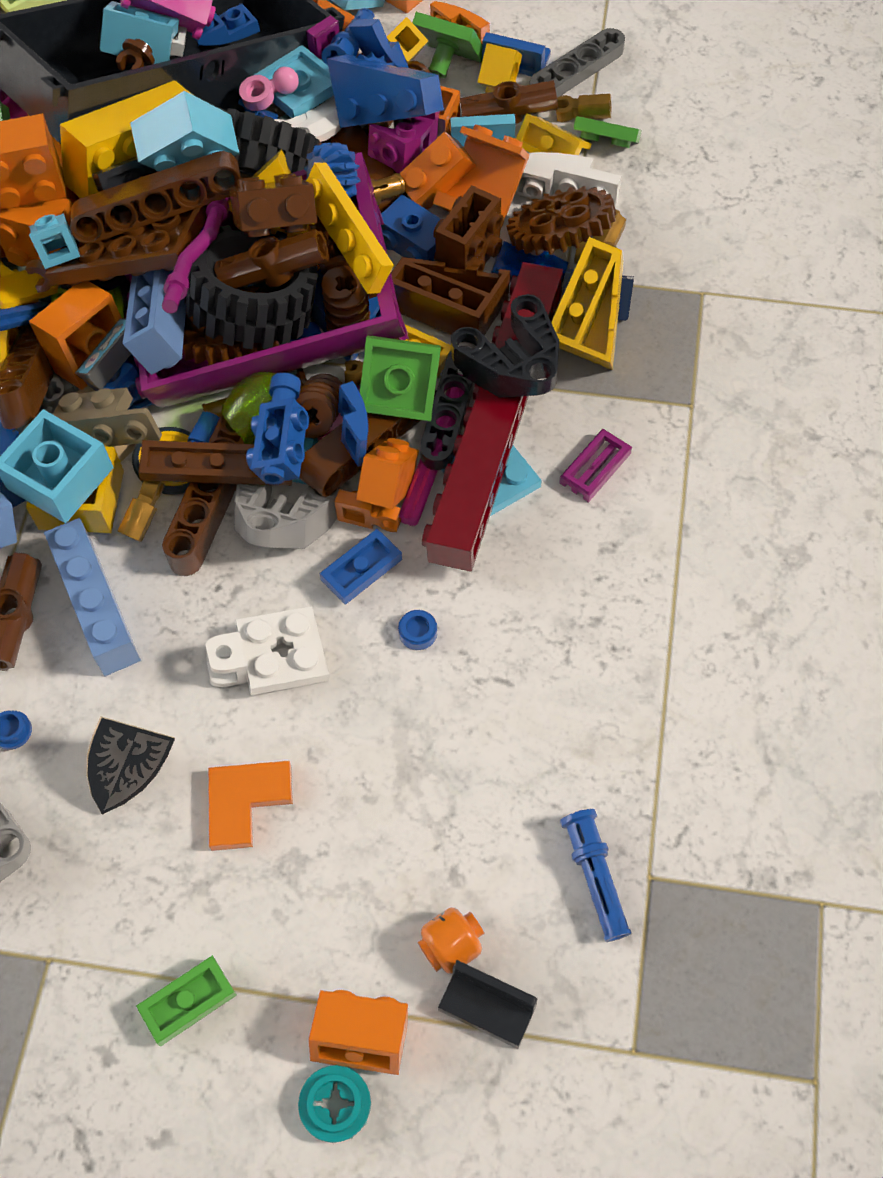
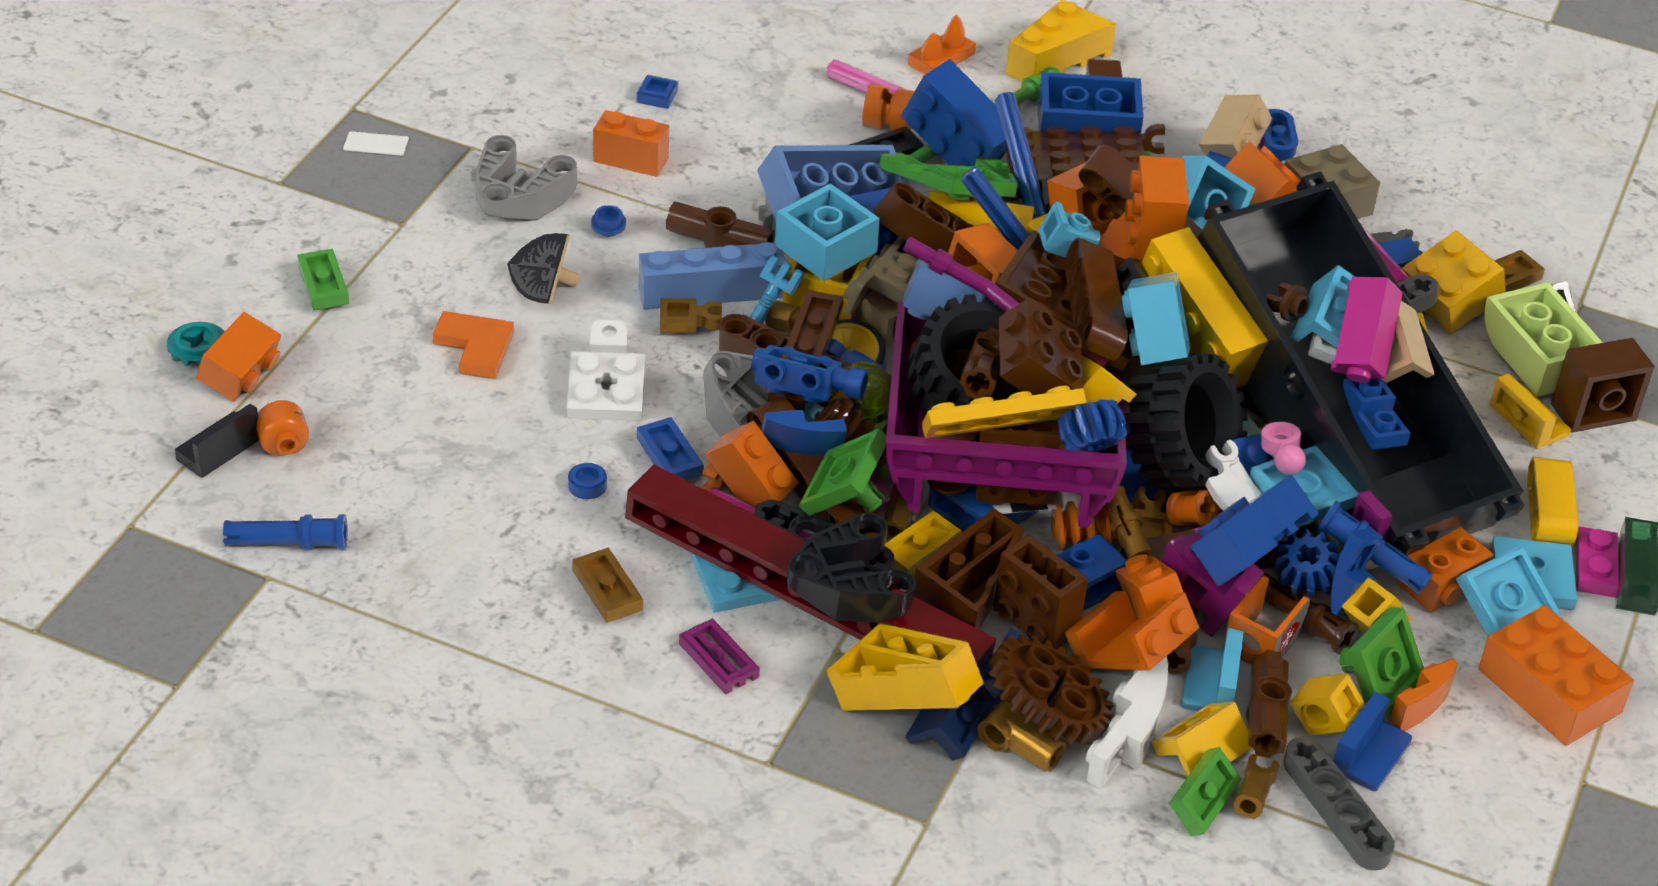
camera: 100 degrees right, 20 degrees down
(110, 513) = (777, 284): none -> dark azure hinge
(156, 608) = (684, 315): none -> pearl gold plate
(554, 566) = (607, 585): none -> pearl gold plate

